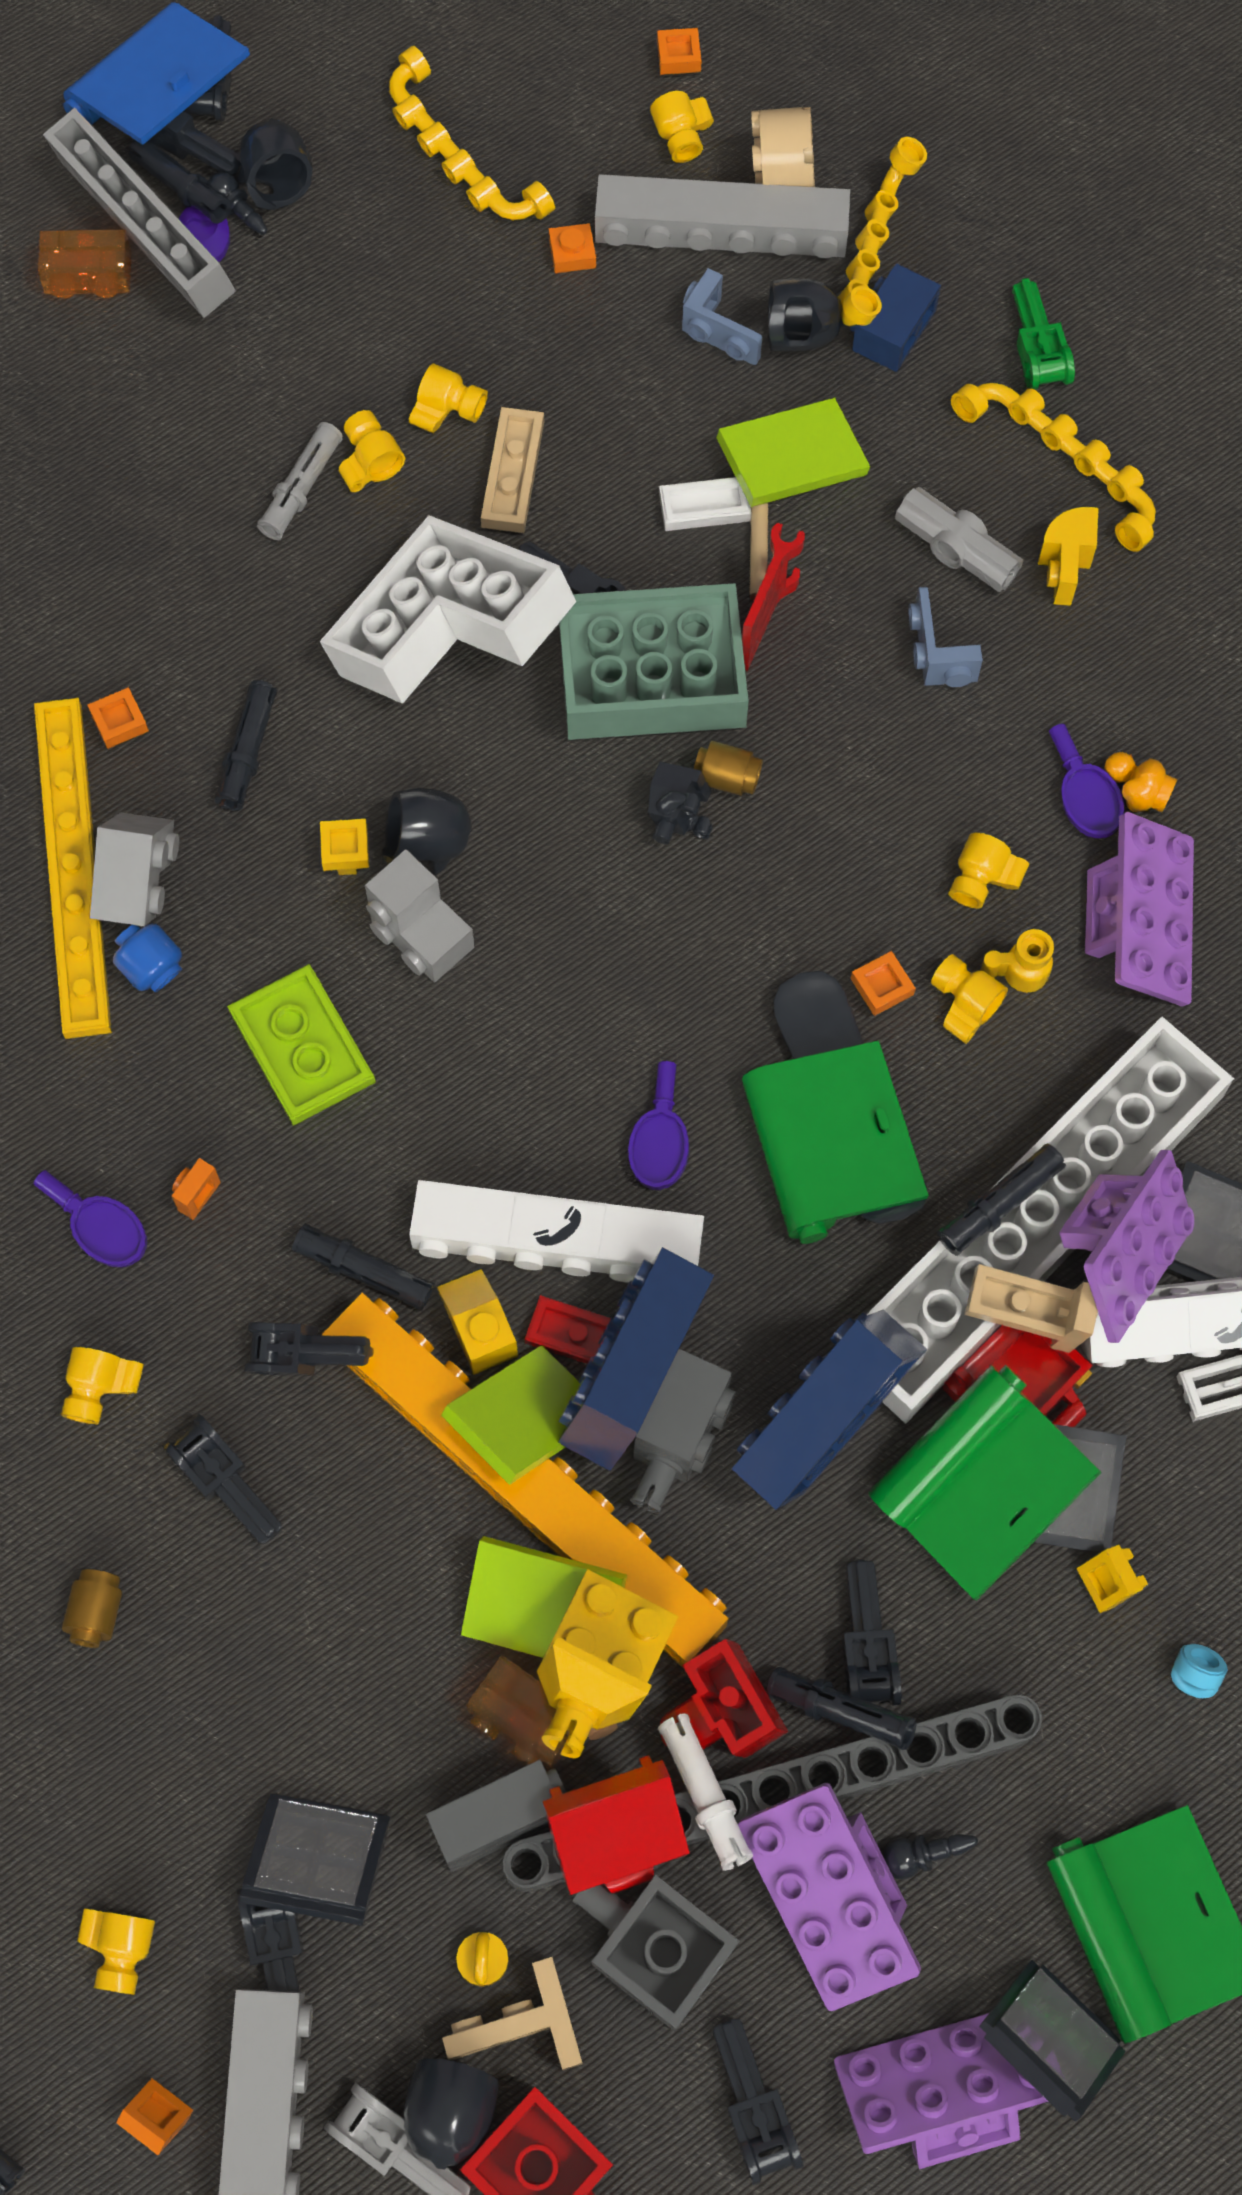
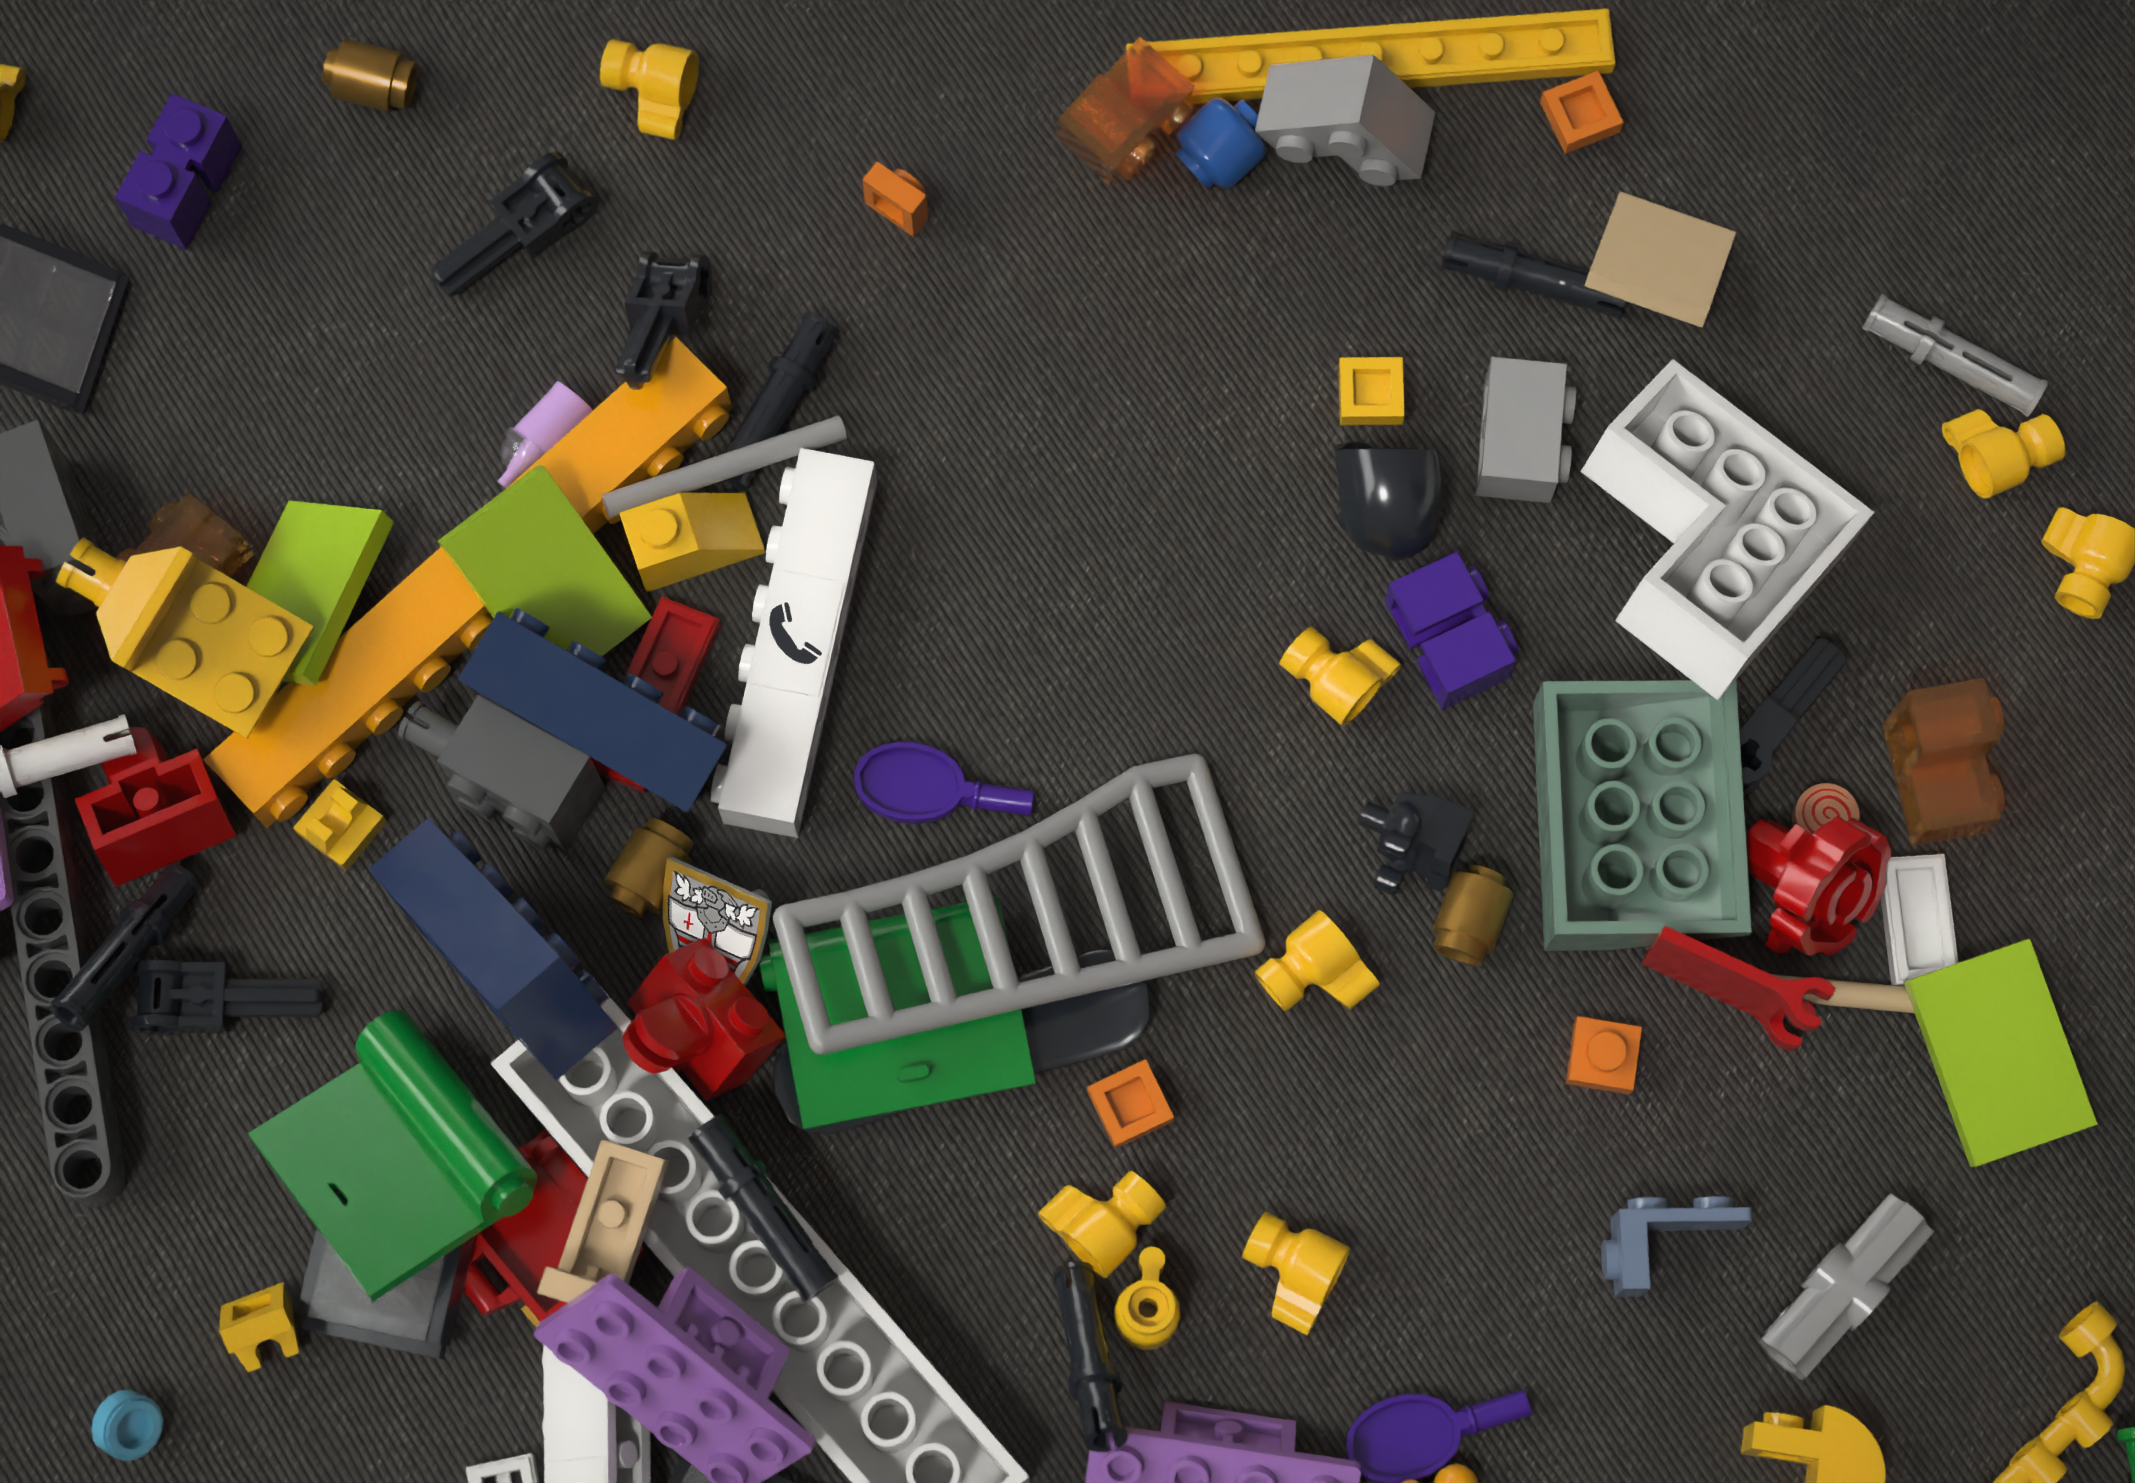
camera: 95 degrees right, 5 degrees up
(99, 1224) = (863, 86): dark purple piece -> none
(130, 1021) = (1124, 110): none -> clear orange brick
(199, 1758) = (159, 189): none -> dark purple piece
(235, 661) = (1660, 259): none -> tan tile
(301, 1044) = (1095, 337): lime tile -> none
(370, 744) = (1523, 430): none -> light grey brick
(399, 1438) = (540, 430): none -> lavender piece
(413, 917) = (1261, 478): light grey brick -> none
(425, 1292) = (725, 466): none -> light grey bar
(512, 470) = (1971, 646): tan plate -> none
(532, 779) = (1460, 641): none -> dark purple piece
(564, 859) = (1342, 681): none -> yellow piece
(599, 483) = (1940, 763): none -> clear orange brick
(637, 558) = (1822, 804): none -> nougat tile
(689, 552) = (1818, 881): none -> red piece
(721, 1566) = (340, 824): none -> yellow tile
(734, 1086) = (971, 873): none -> light grey bar
(740, 1326) = (641, 867): none -> pearl gold brick
(765, 868) = (1318, 956): none -> yellow piece
(790, 1268) = (714, 909): none -> shield
(815, 689) = (1603, 1055): none -> orange plate
(858, 1270) = (699, 1022): none -> red brick
(1087, 981) = (1093, 1376): none -> black pin

